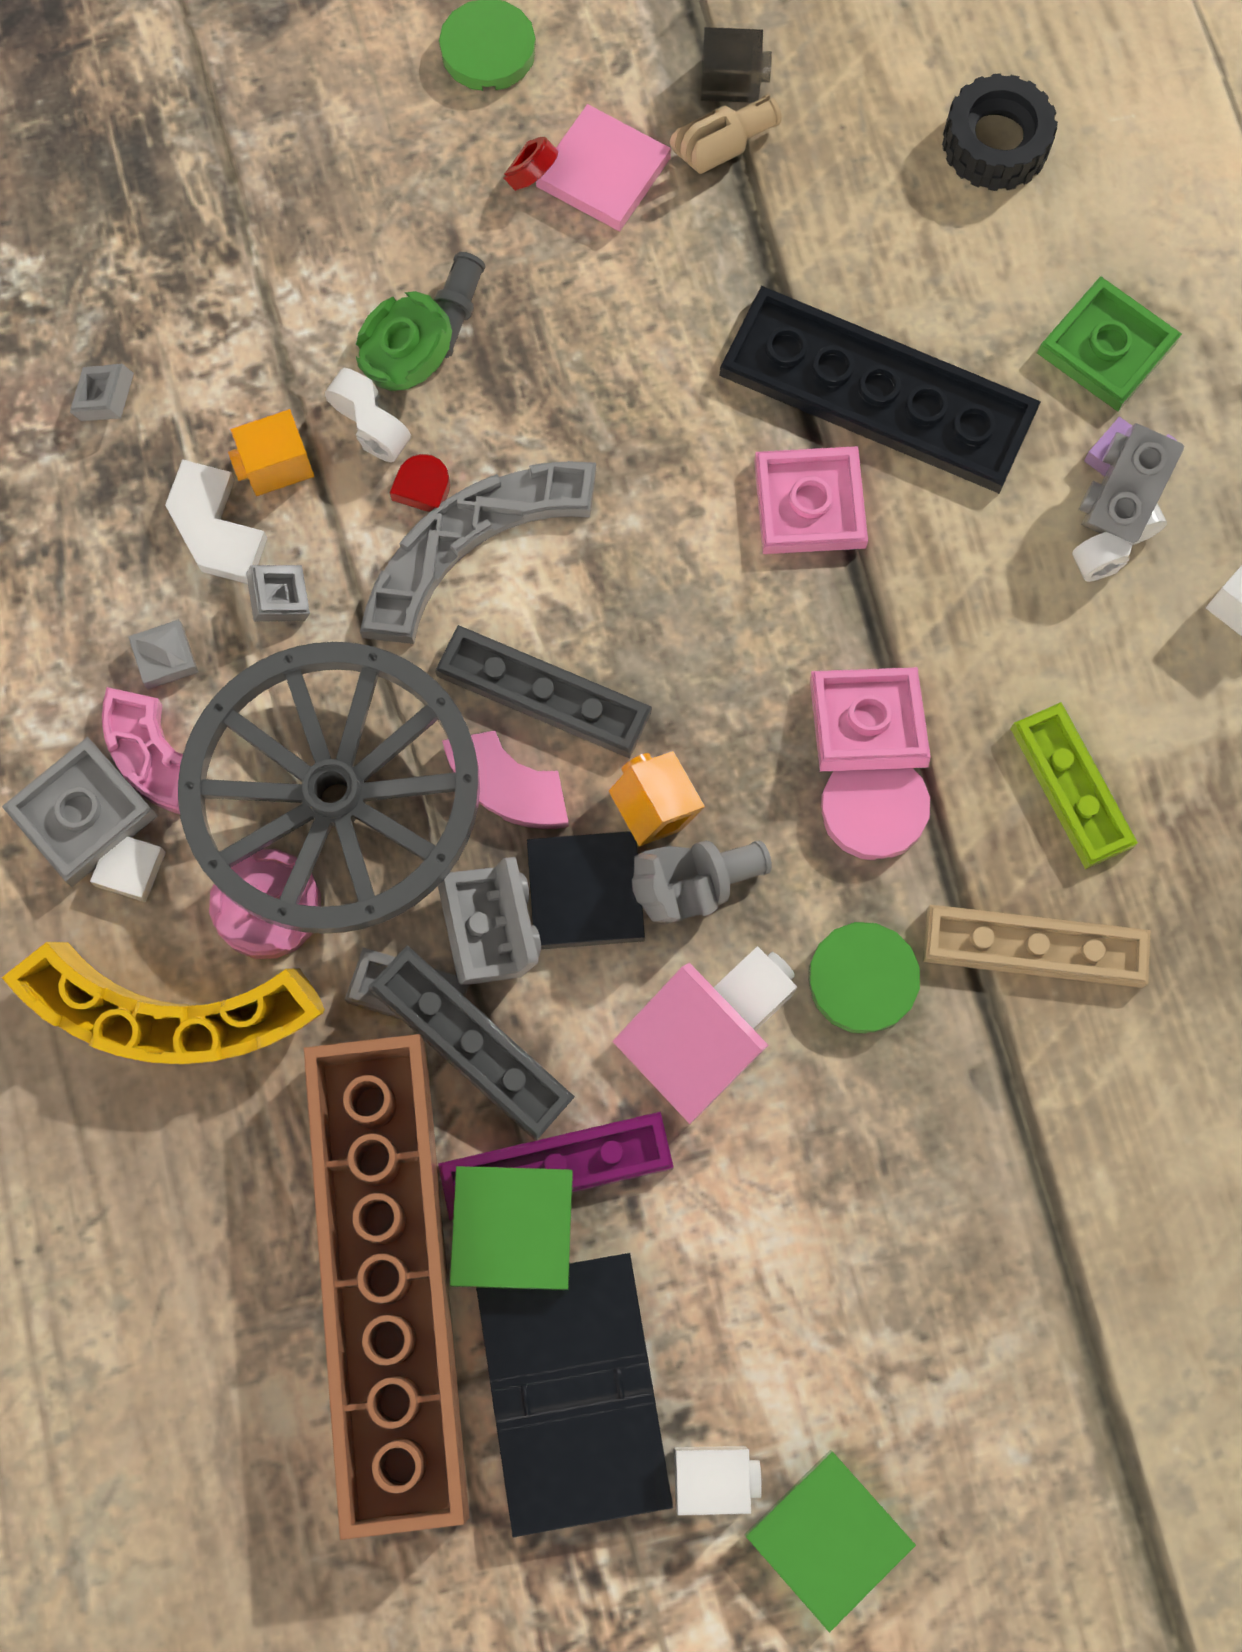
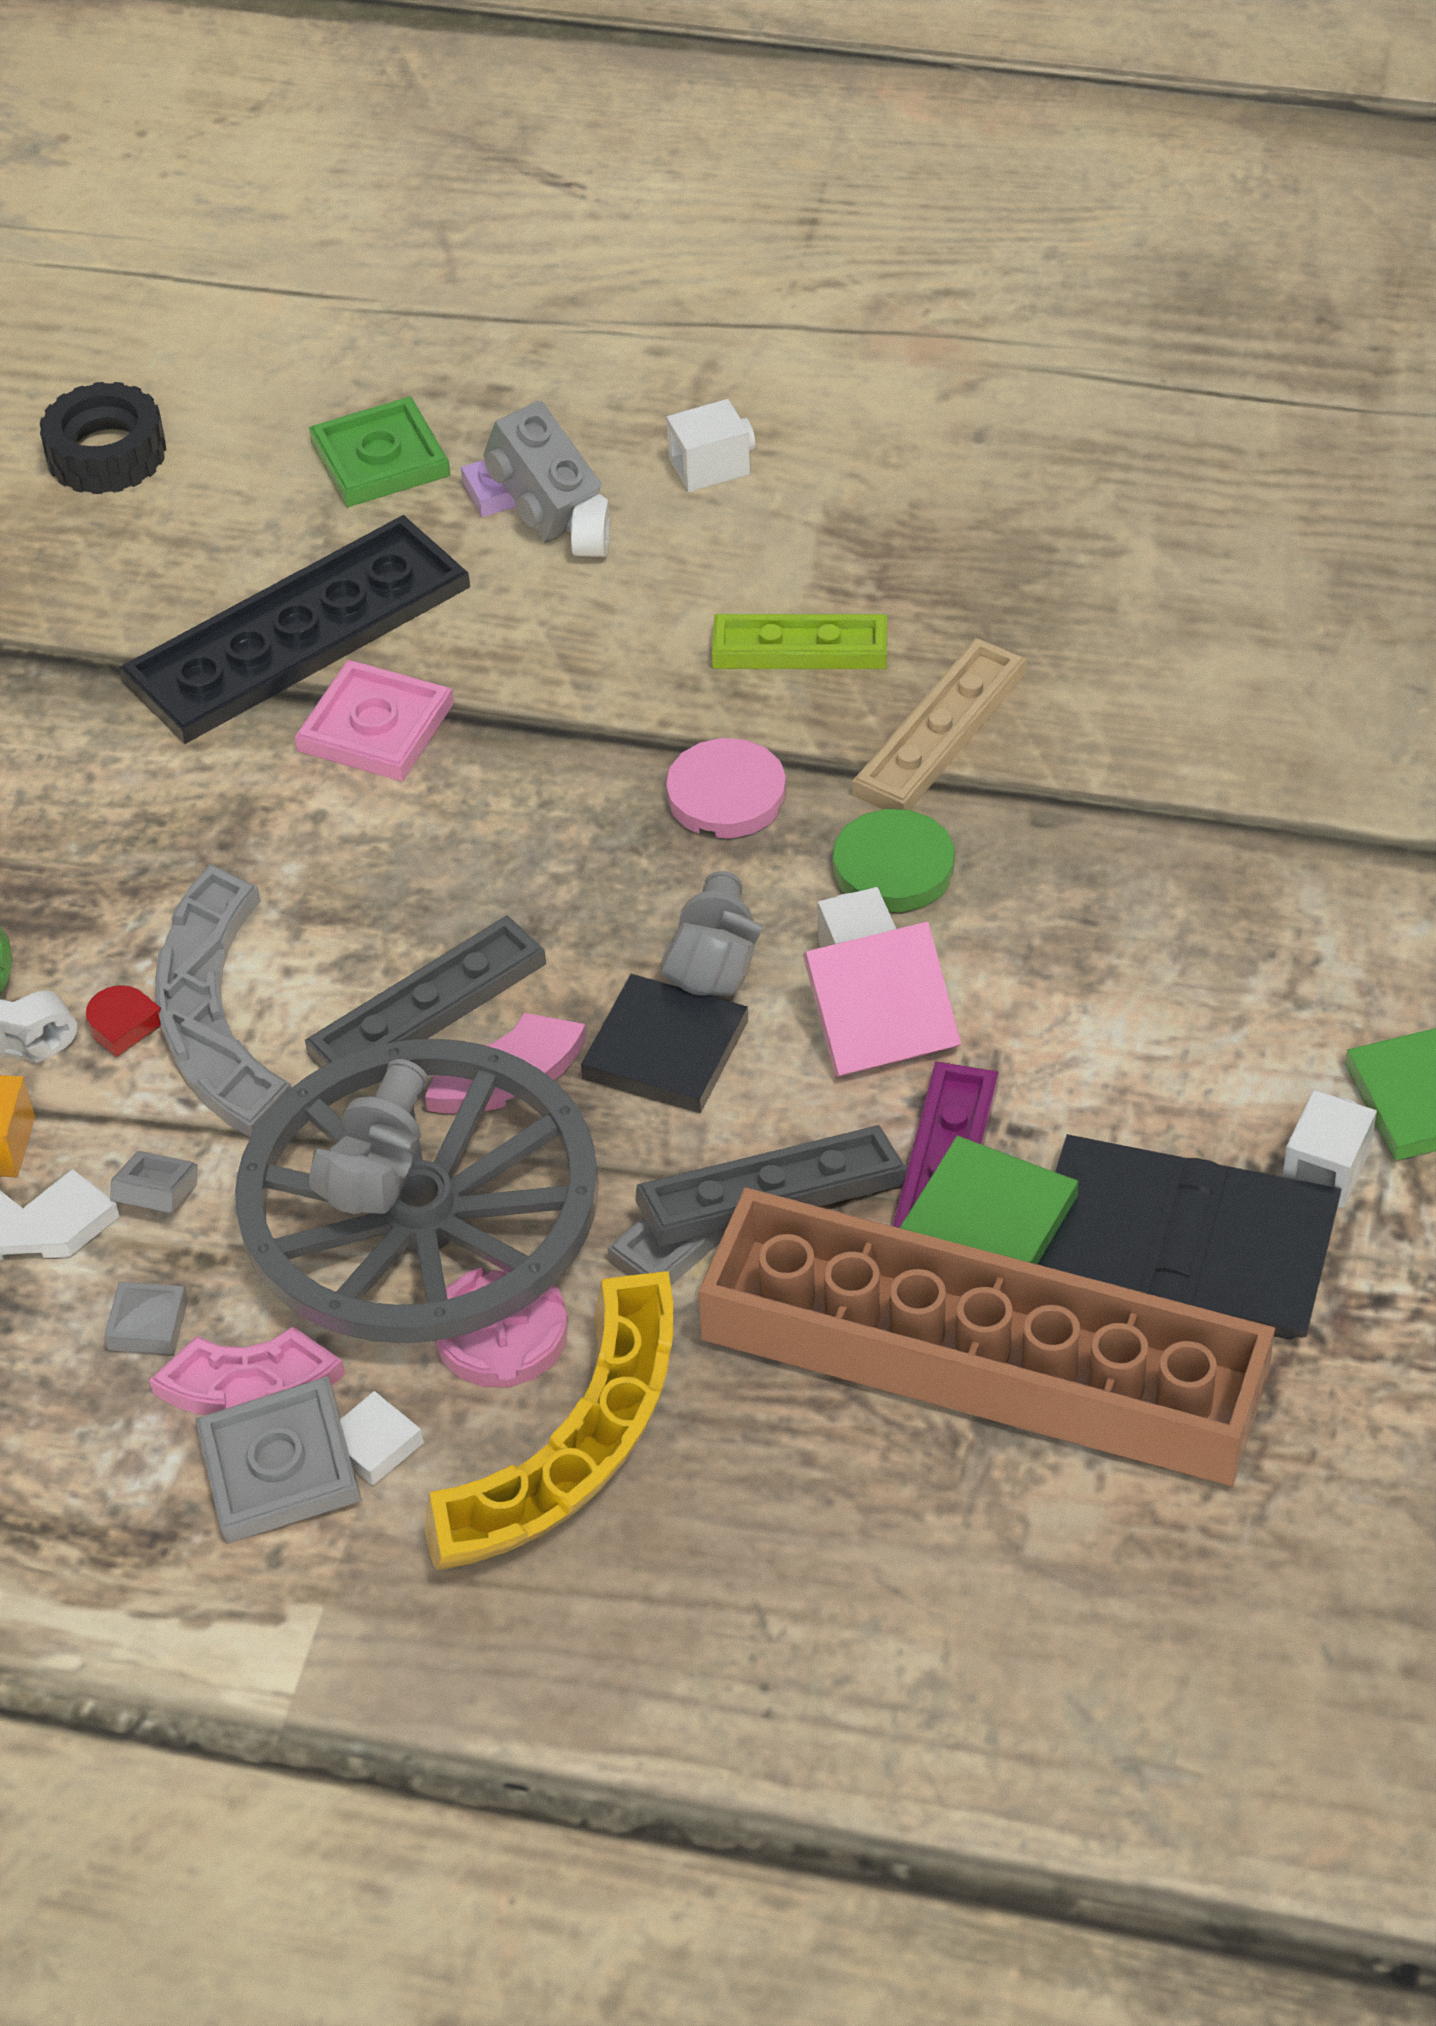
camera: 60 degrees left, 25 degrees down
(317, 743) = (380, 1145): none -> light grey piece
(489, 923) = (656, 1116): light grey bracket -> none
(655, 797) = (608, 935): light orange brick -> none
(869, 719) = (636, 753): bright pink tile -> none

